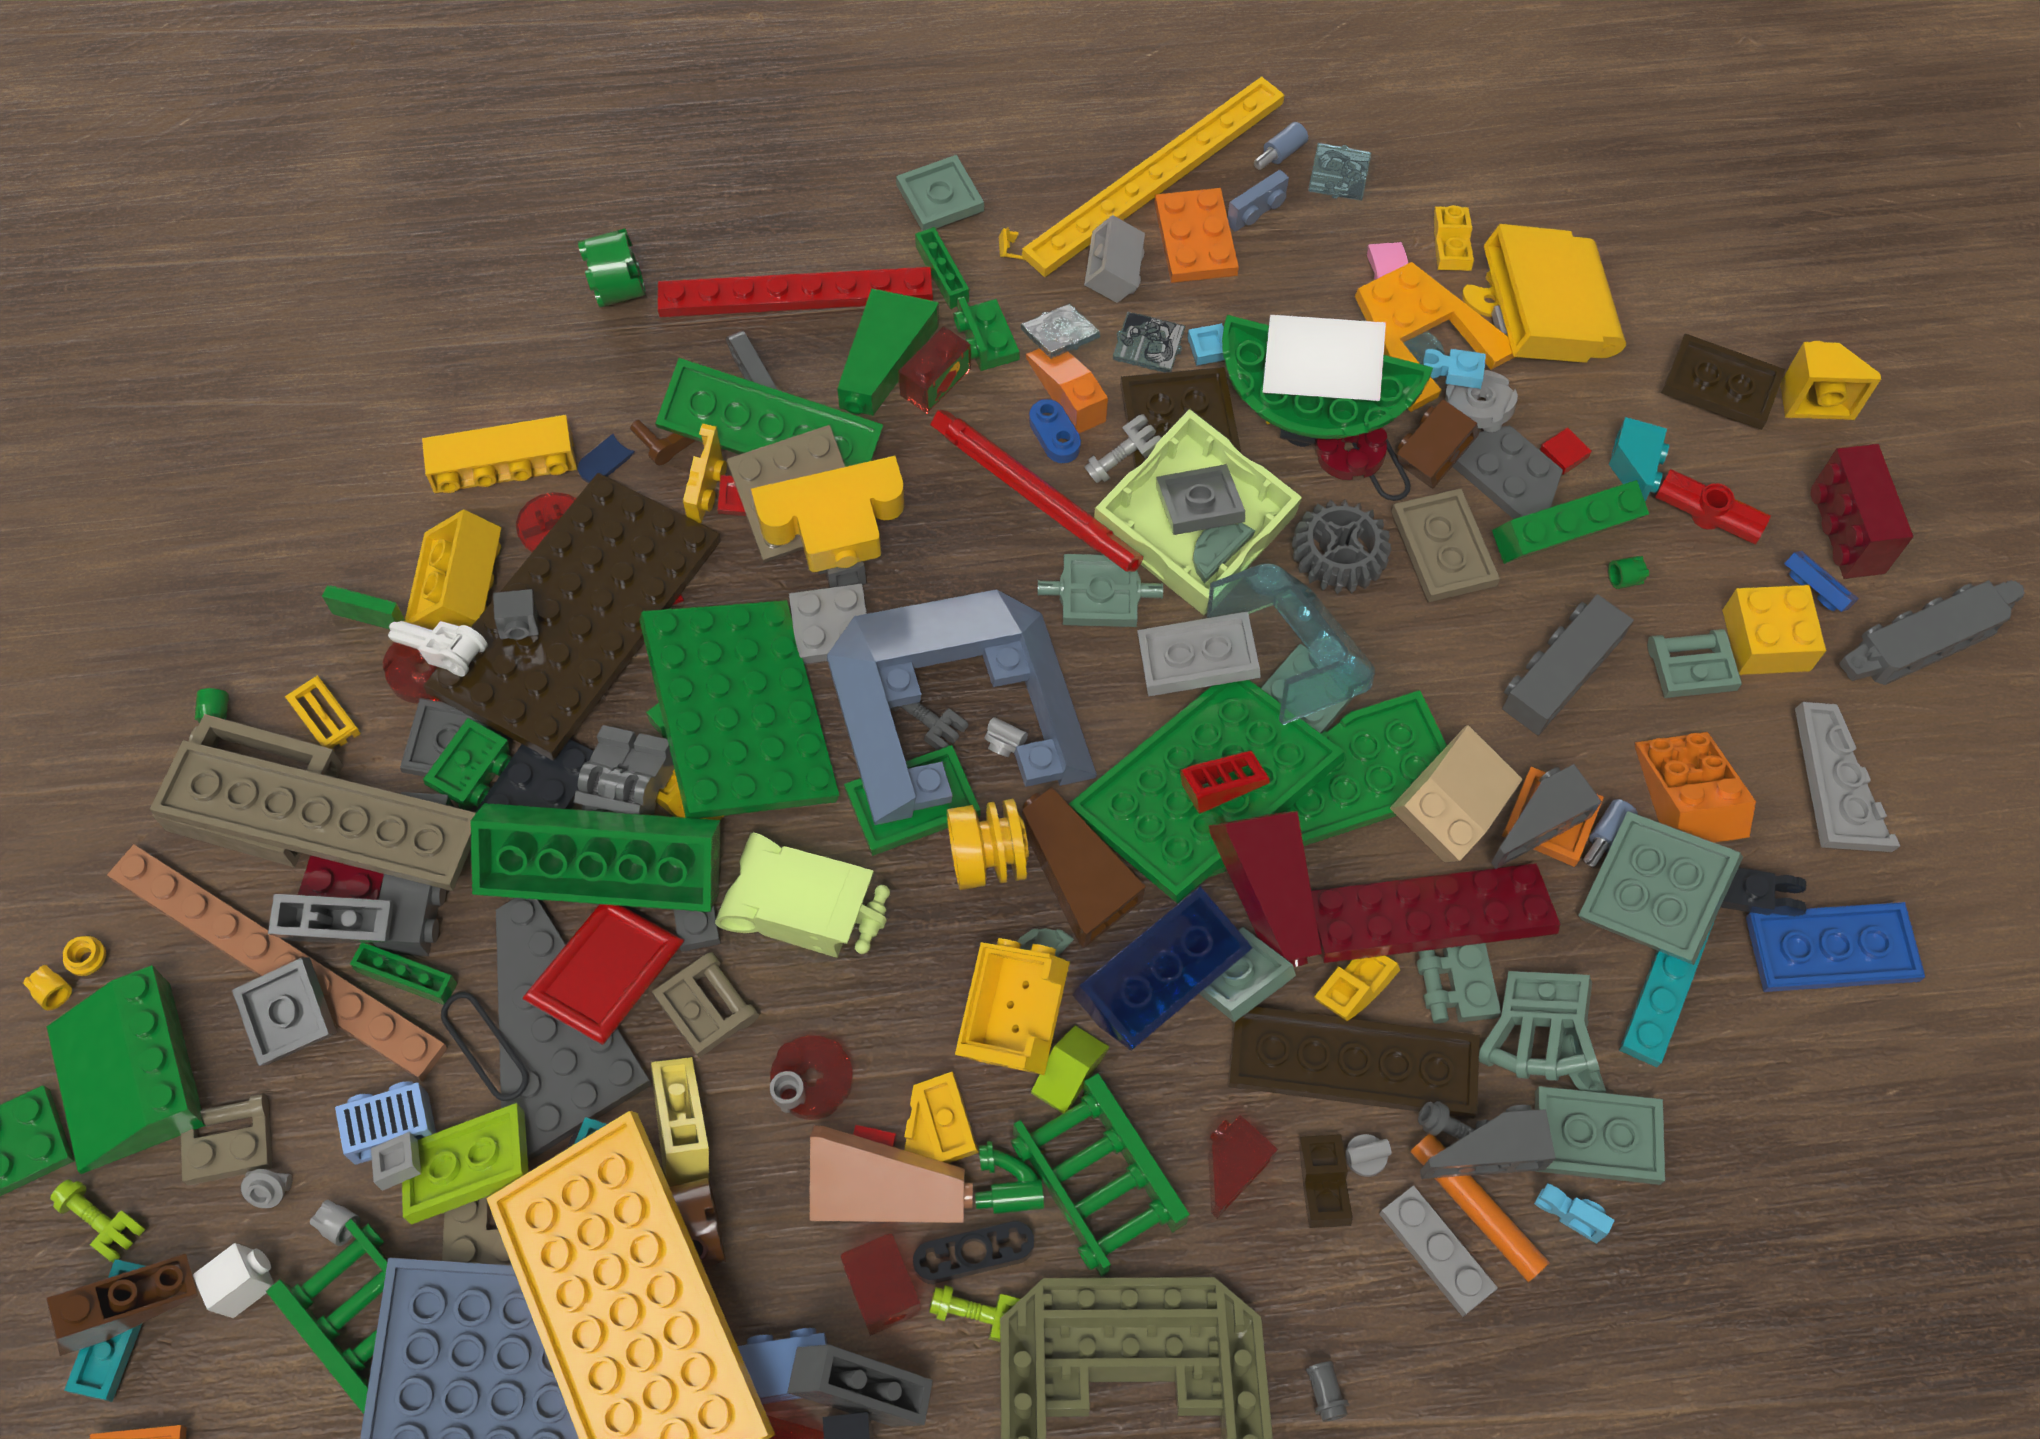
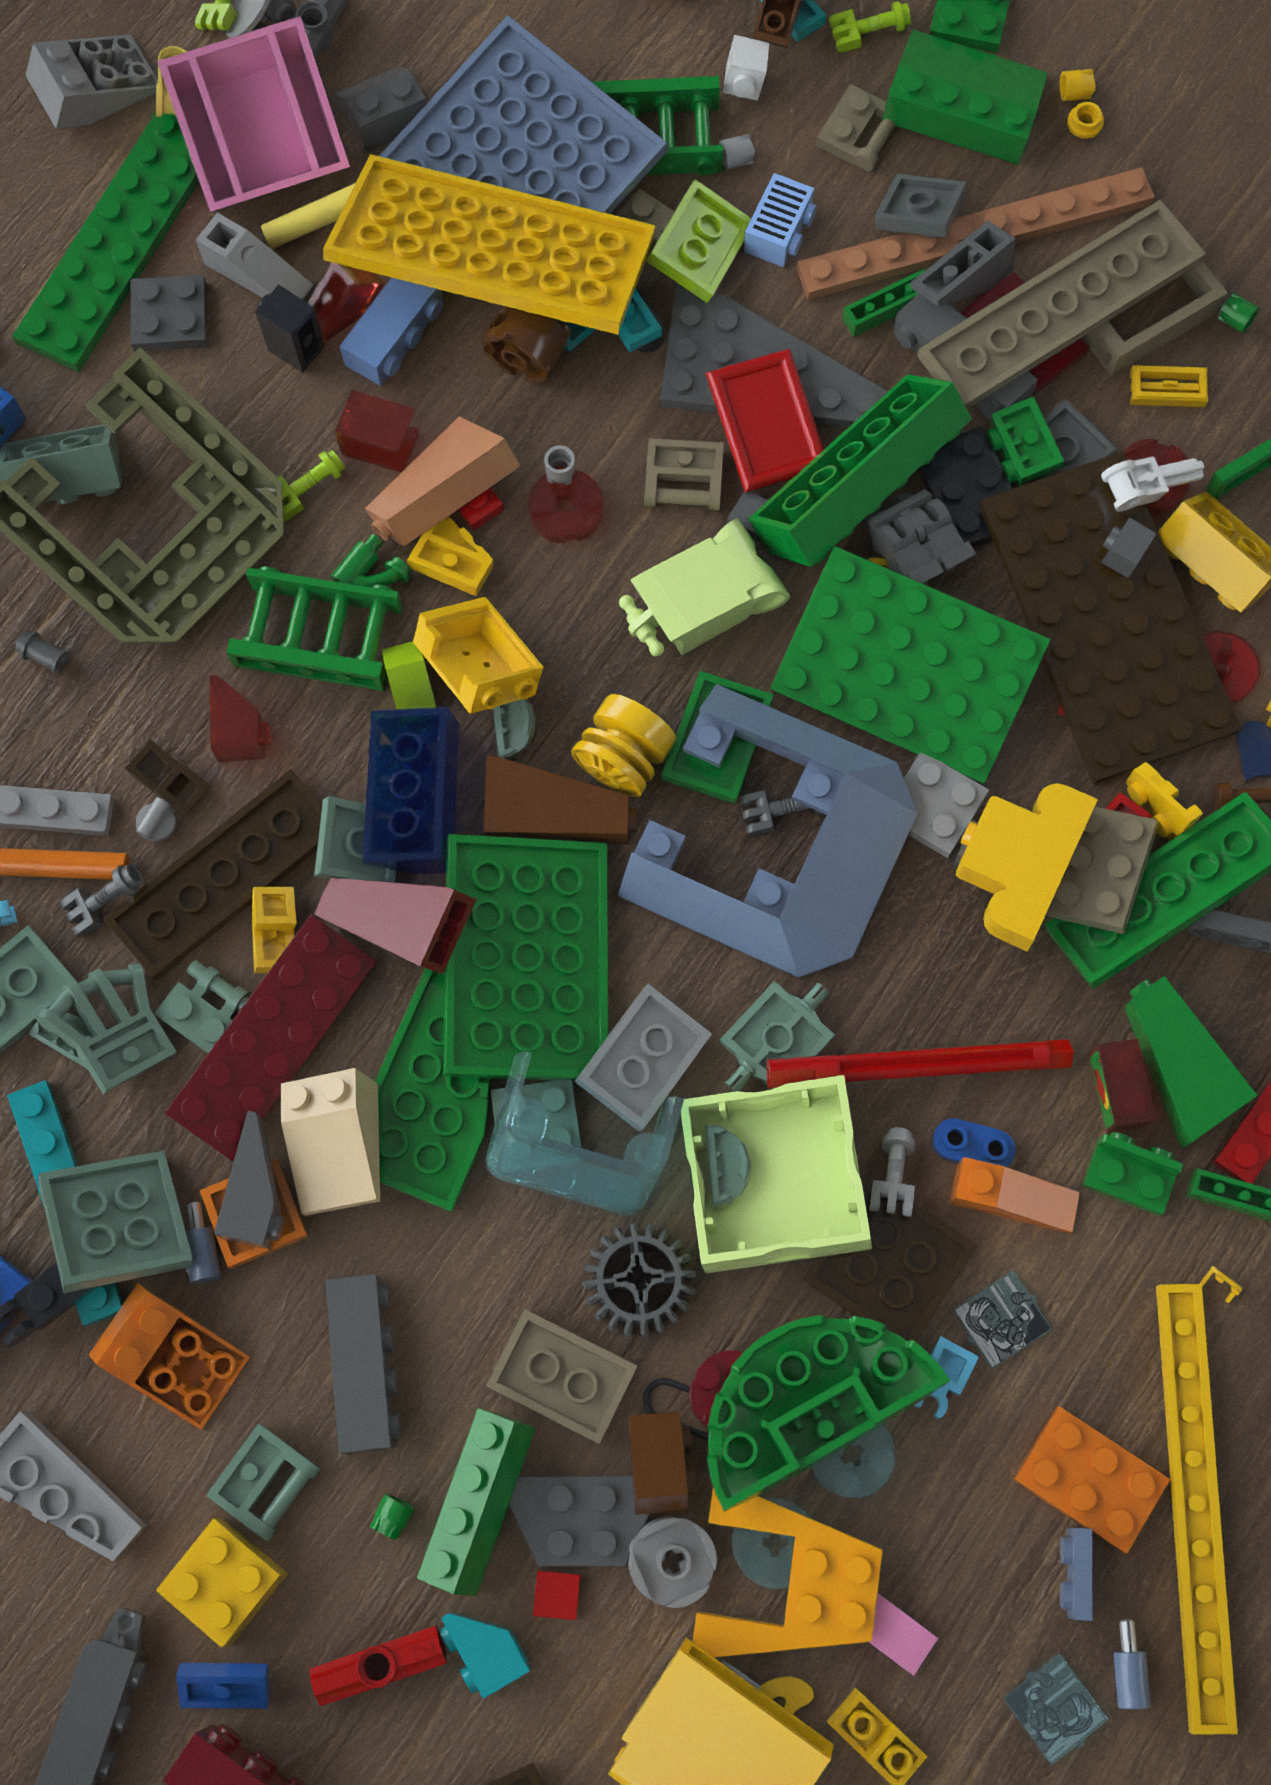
camera: 135 degrees right, 10 degrees up
(265, 1188) = (801, 129): light grey plate -> none
(395, 1161) = (739, 199): light grey plate -> none
(470, 1057) = (783, 303): black piece -> none
(680, 1121) = (610, 394): light yellow slope -> none
(860, 1385) = (316, 353): dark grey brick -> none
(965, 1269) = (345, 495): black beam -> none
(1004, 737) = (708, 844): light grey plate -> none
(1060, 330) = (1078, 1241): piece -> none
(1115, 259) = (1115, 1358): light grey brick -> none
(1200, 499) = (779, 1180): dark grey plate -> none
(1217, 794) = (519, 924): red slope -> none
(1324, 357) = (824, 1424): white sticker -> none
(1460, 367) = (715, 1569): medium azure plate -> none
(1507, 1144) = (62, 898): dark grey slope -> none

